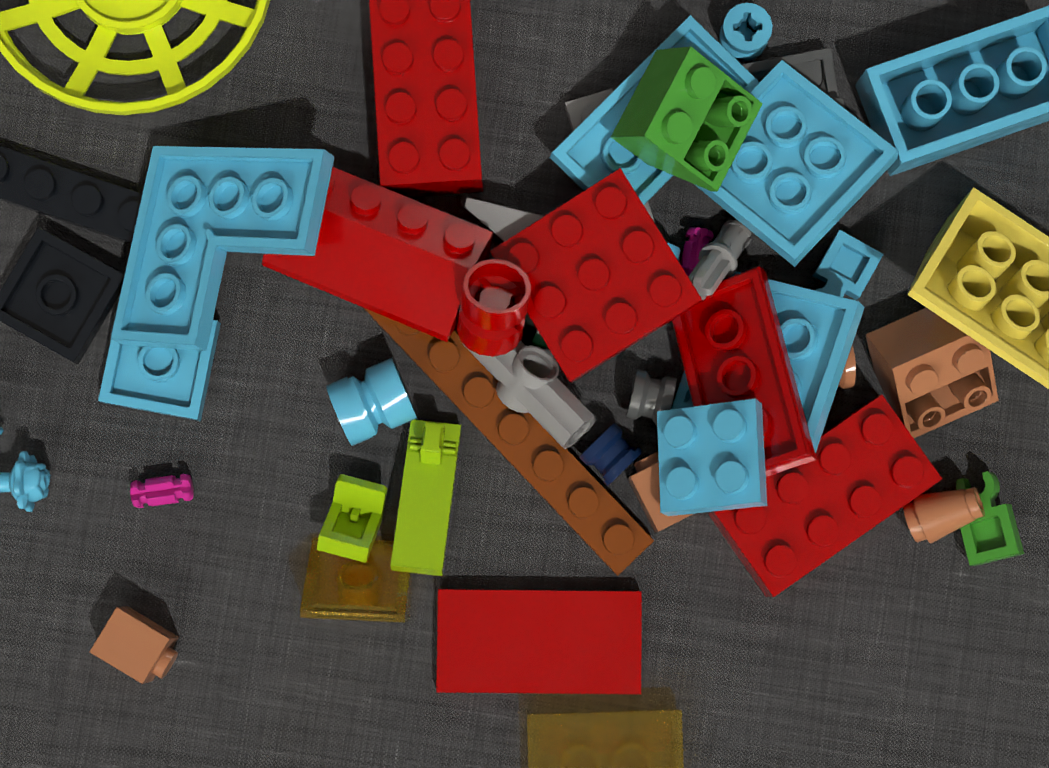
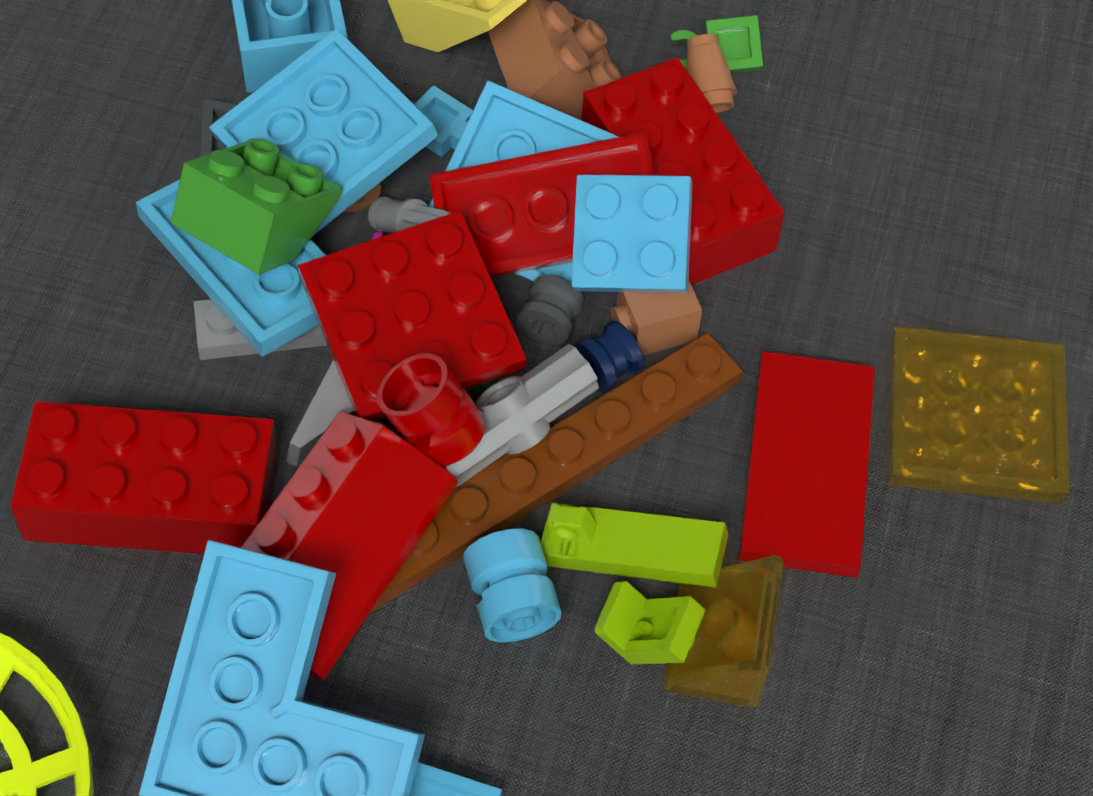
camera: 85 degrees left, 25 degrees down
(744, 43) = (160, 154): medium azure wheel -> none

